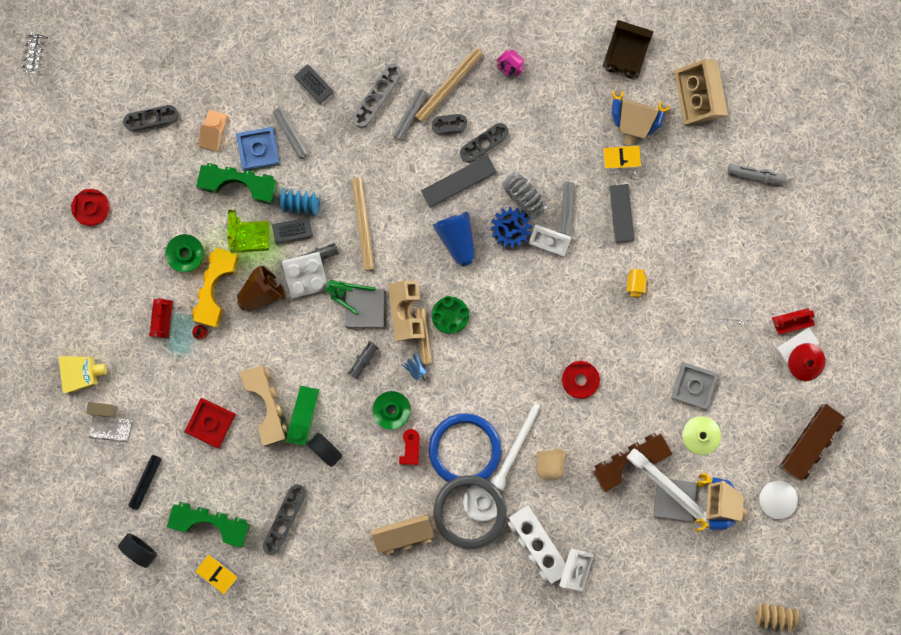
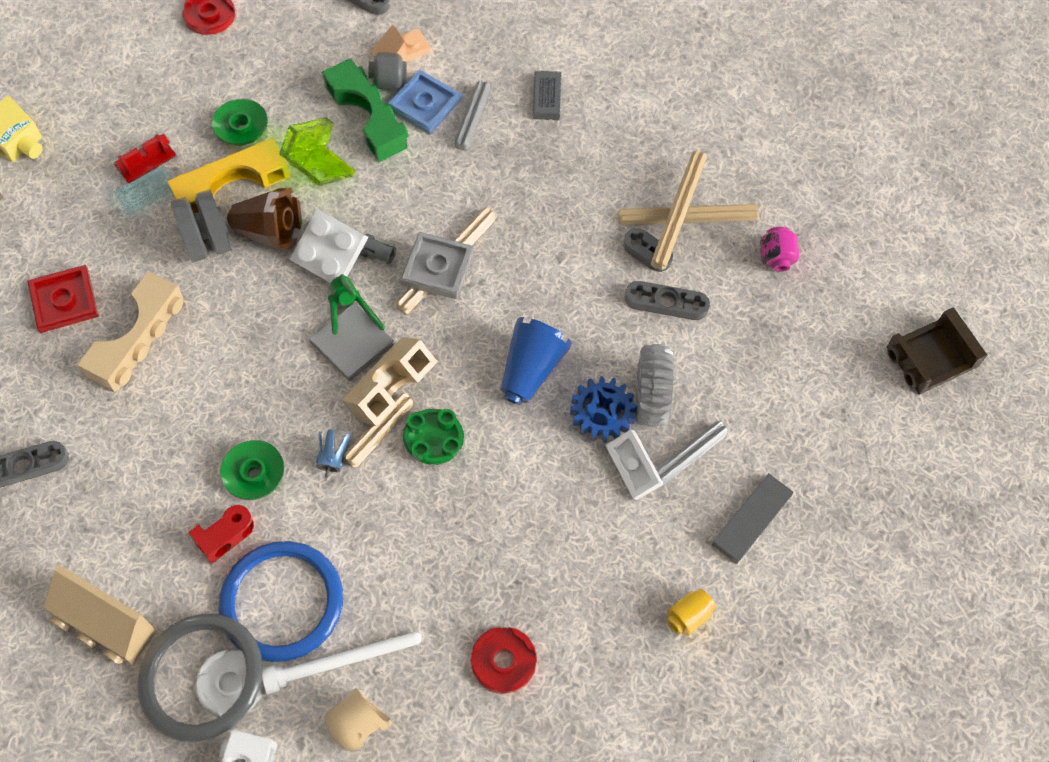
camera: 45 degrees right, 20 degrees down
(203, 333) = (162, 206): red hinge -> none
(224, 151) = (388, 70): none -> dark grey head
(239, 323) = (201, 226): none -> dark grey wheel
(292, 230) = (368, 200): dark grey tile -> none
(299, 202) = (406, 179): dark azure piece -> none
(302, 416) = (153, 382): green slope -> none
(325, 449) = (132, 435): black tyre -> none
(363, 360) = (286, 389): dark grey pin -> none
(365, 232) = (437, 265): none -> light grey tile
(375, 94) = (598, 155): light grey beam -> none
(410, 114) = (614, 204): light grey axle -> none
(445, 89) = (678, 210): none -> tan axle
(458, 181) = (596, 313): dark grey tile -> none
(621, 159) = (811, 456): yellow brick -> none
(636, 118) = (876, 429): tan torso -> none
(701, 92) = (987, 474): tan slope -> none
(764, 176) = (978, 638): light grey pin -> none

